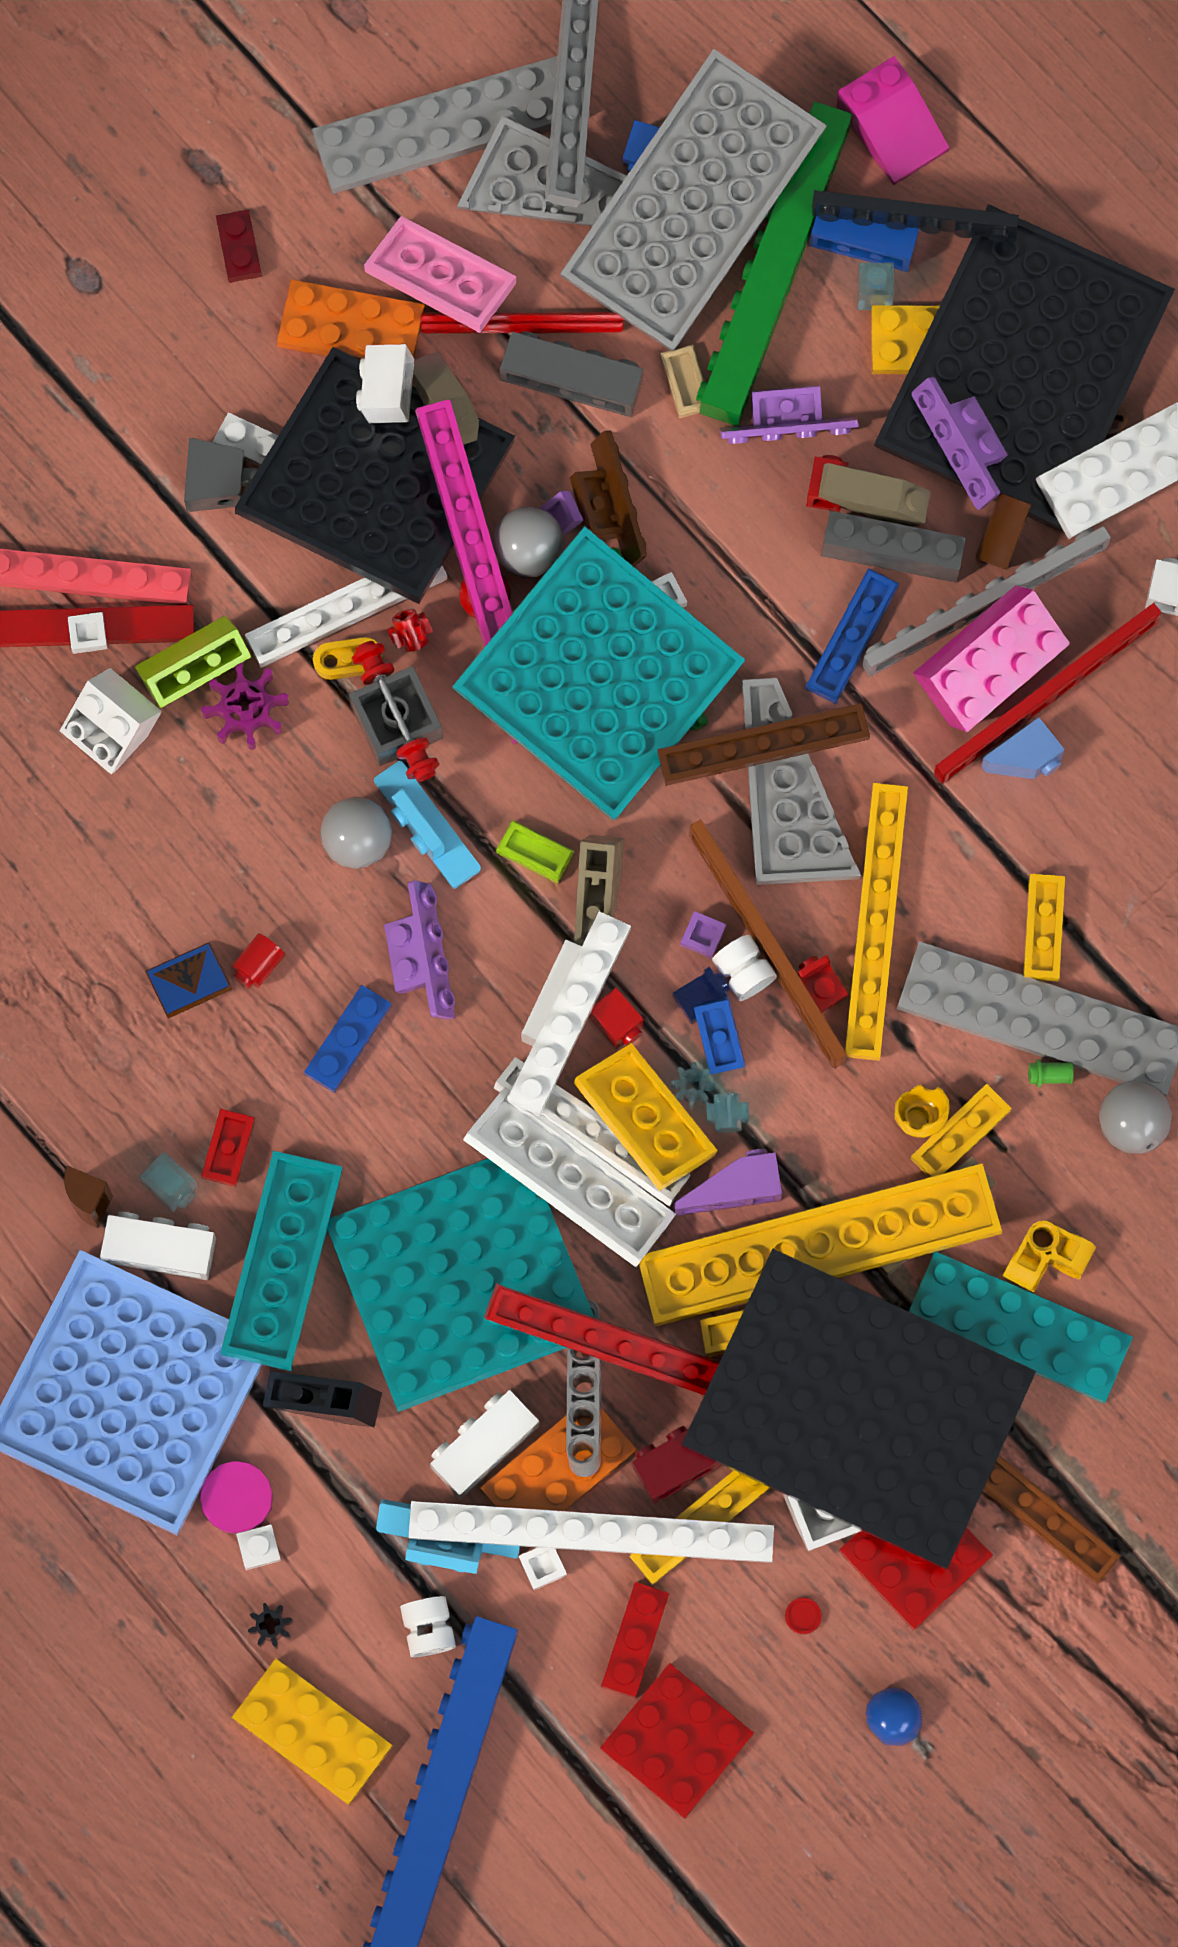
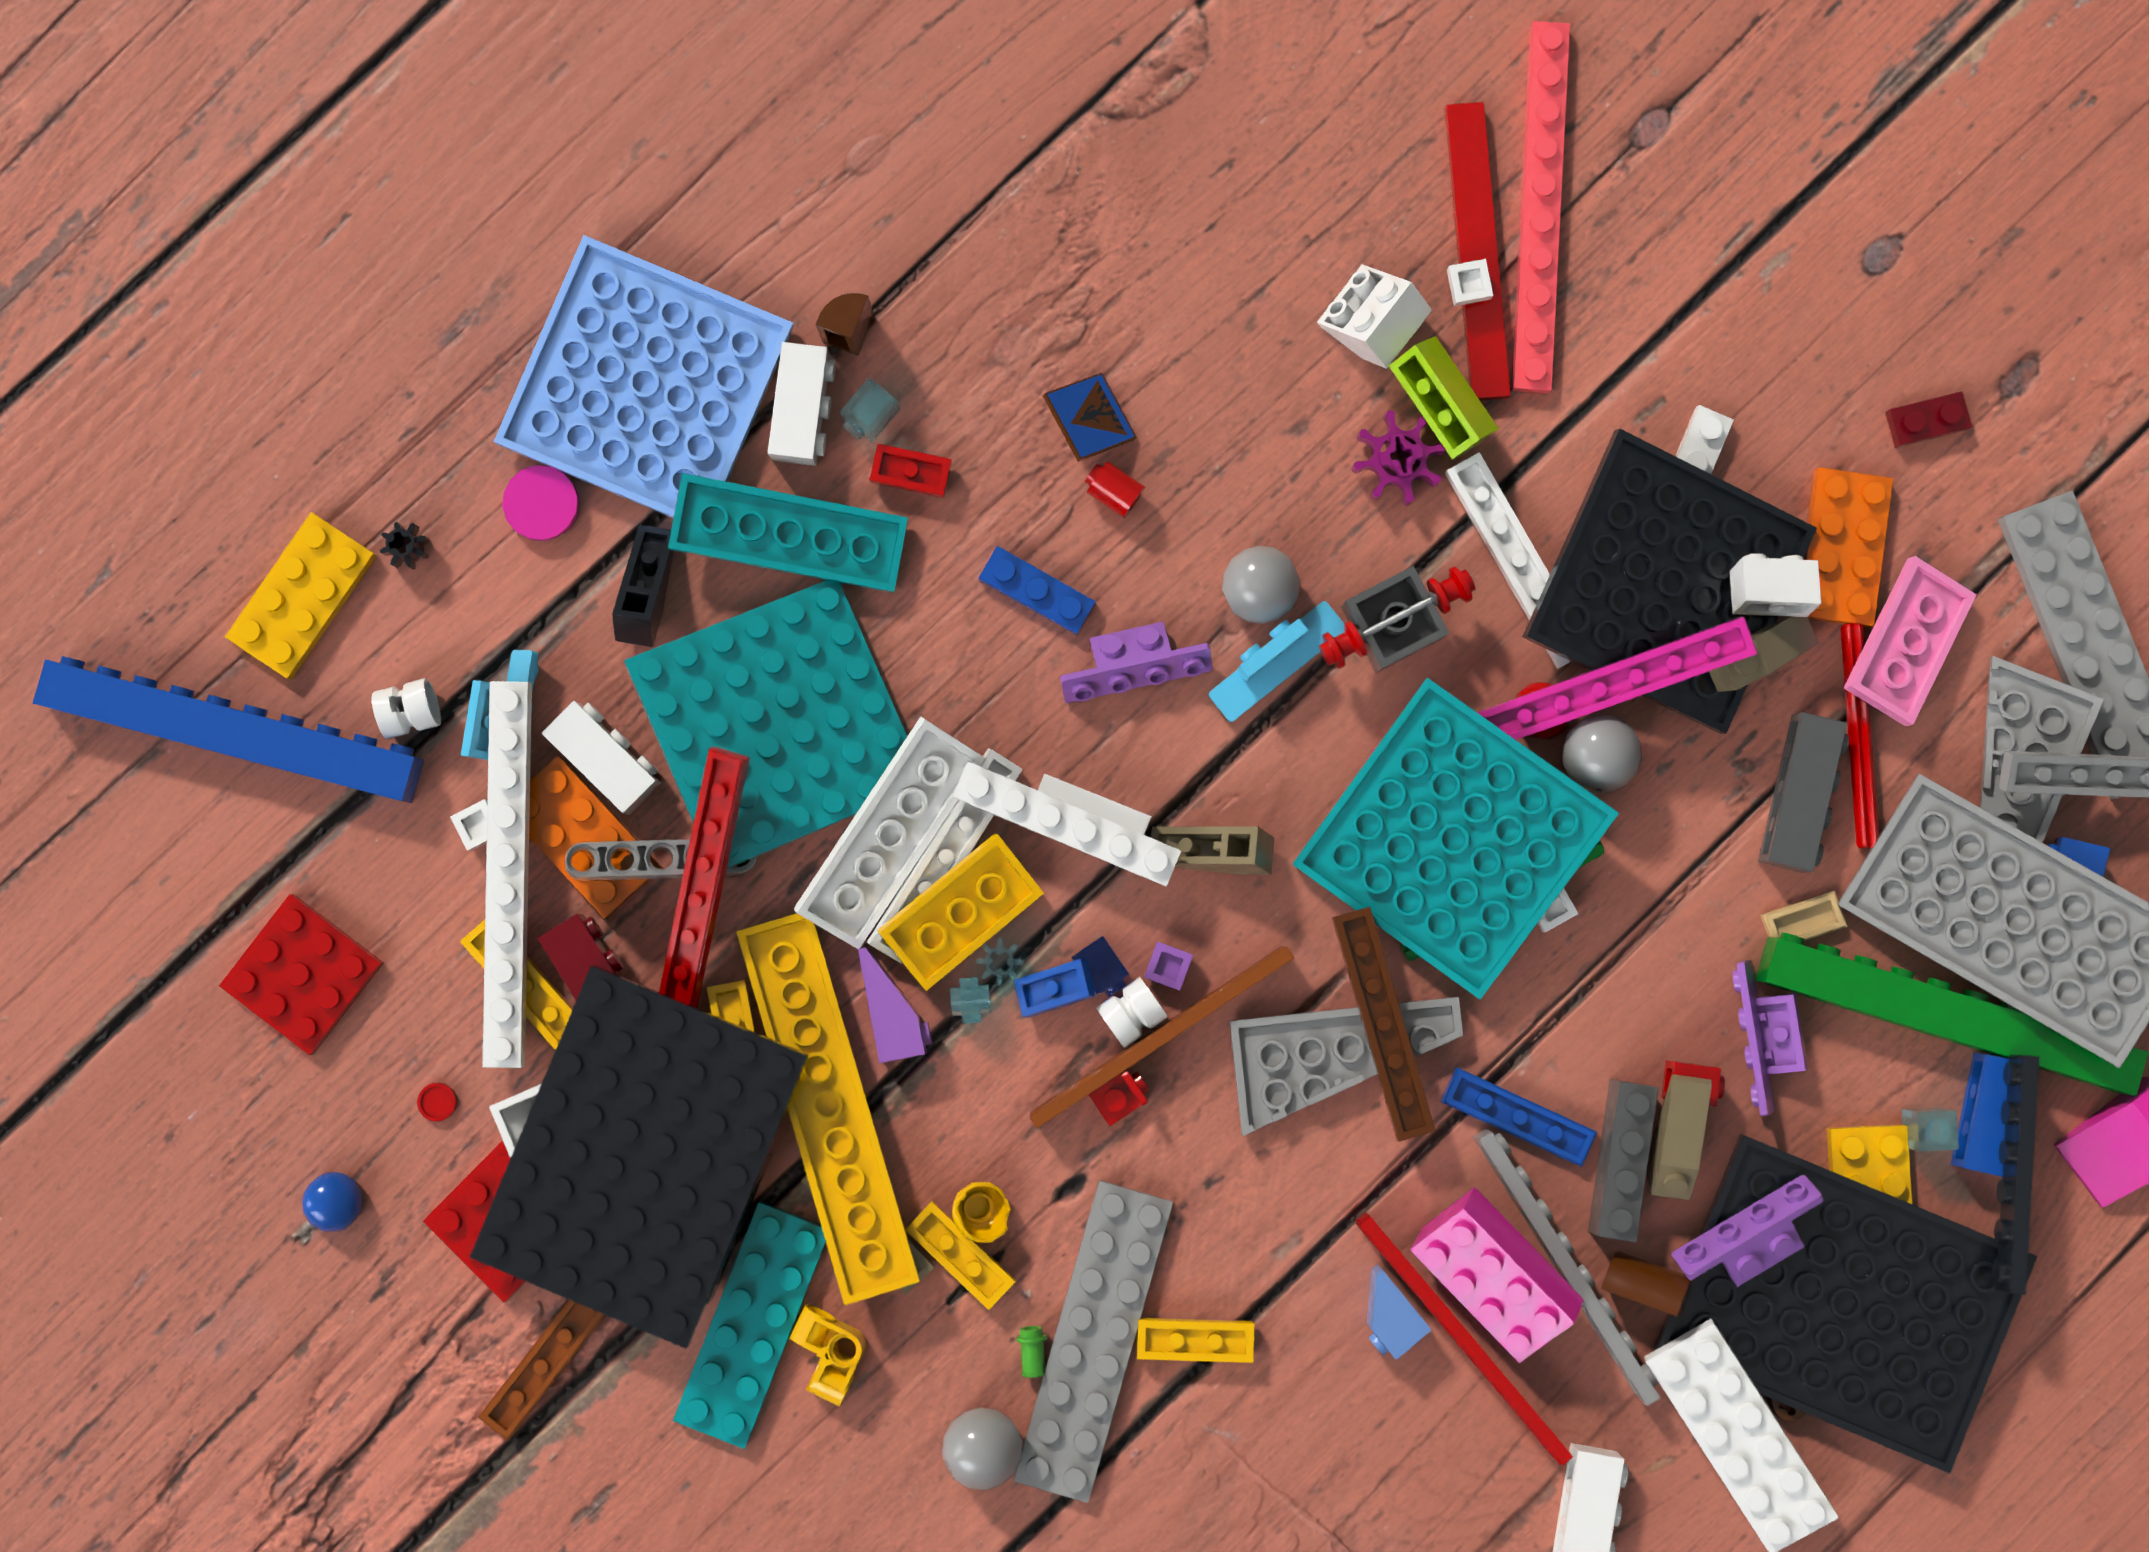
camera: 85 degrees right, 10 degrees up
(215, 476) = (1659, 407): dark grey torso -> none
(258, 1547) = (489, 529): white plate -> none
(342, 652) = (1466, 560): yellow plate -> none
(410, 630) = (1494, 630): red gear -> none
(535, 852) = (1254, 779): lime tile -> none
(564, 510) = (1641, 790): medium lavender plate -> none
(606, 501) = (1654, 838): reddish brown bracket -> none
(617, 1019) = (1068, 877): red brick -> none
(635, 1640) = (405, 926): red plate -> none
(876, 921) = (1194, 1154): yellow plate -> none

